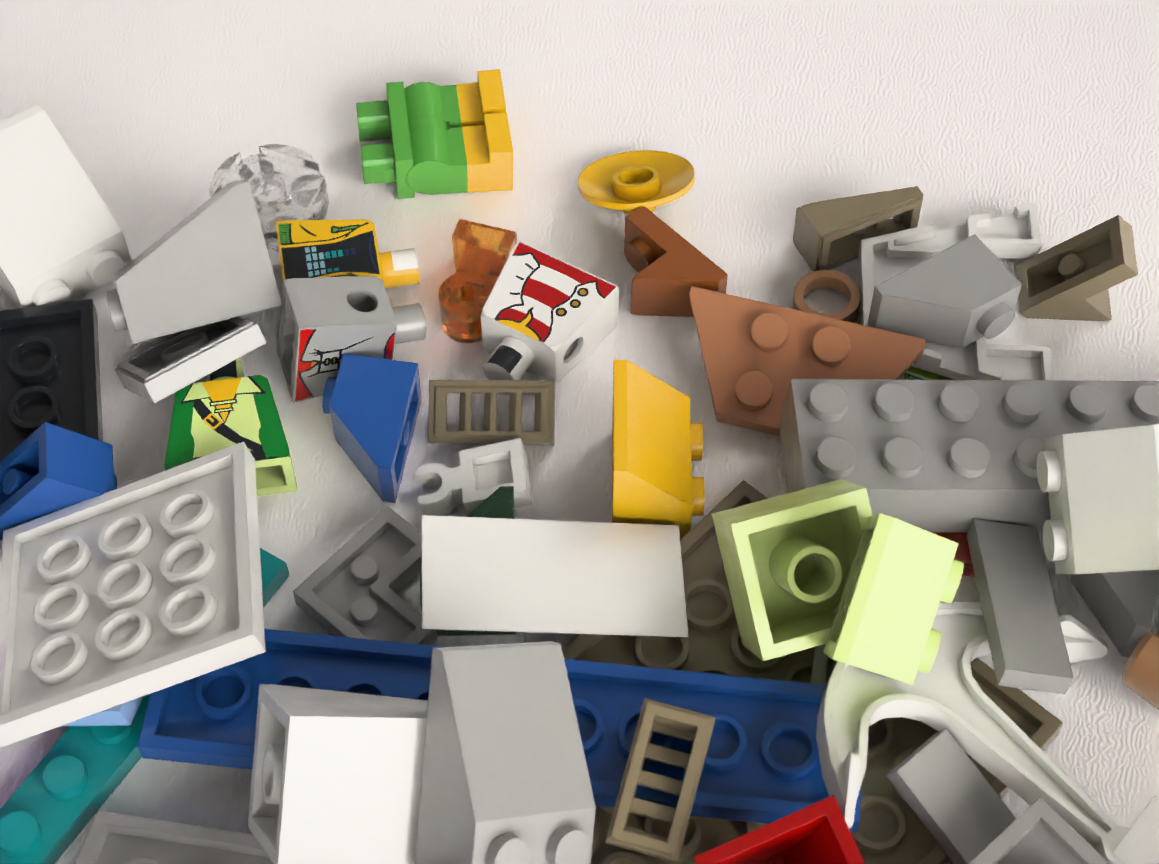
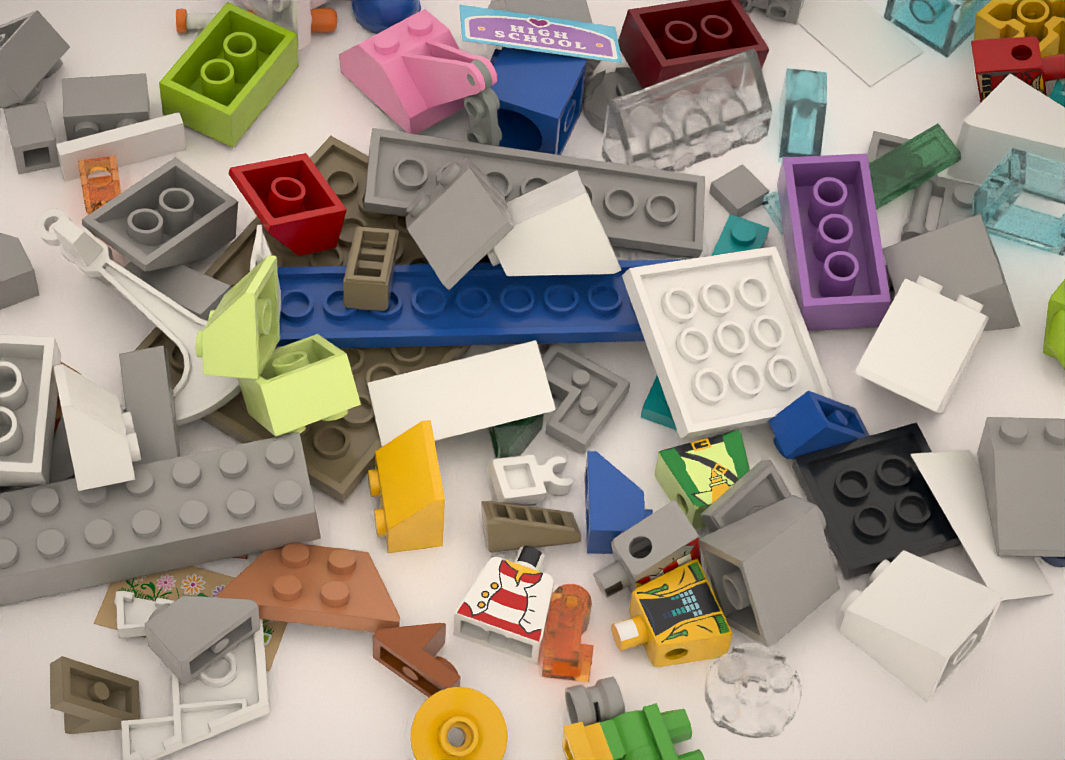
camera: 165 degrees right, 0 degrees up
(465, 197) = (595, 702): none -> light grey wheel
(831, 280) = (292, 683): medium nougat piece -> none
(832, 229) = (275, 721): dark tan slope -> none

